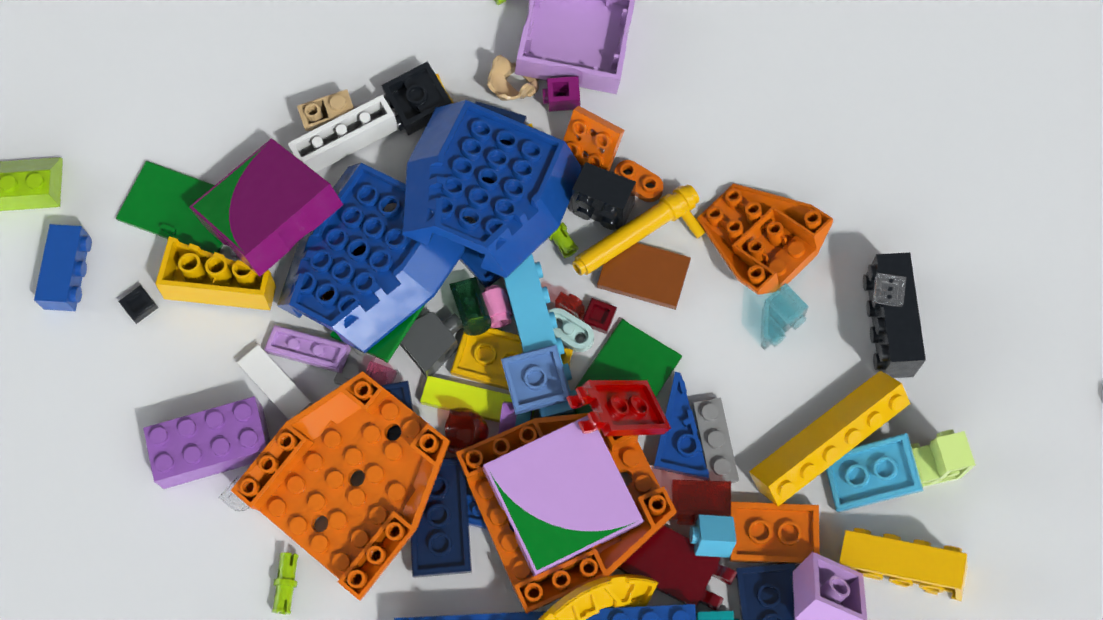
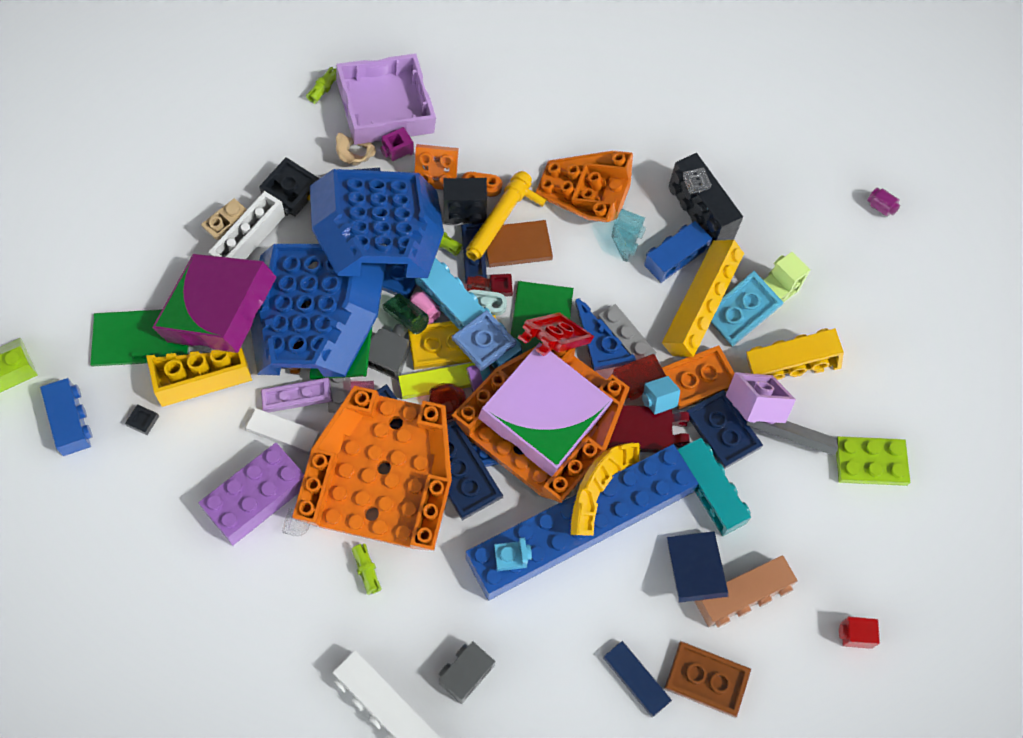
camera: 35 degrees left, 5 degrees down
(582, 285) = (471, 267): none -> dark blue tile
(830, 364) = (677, 251): none -> blue brick

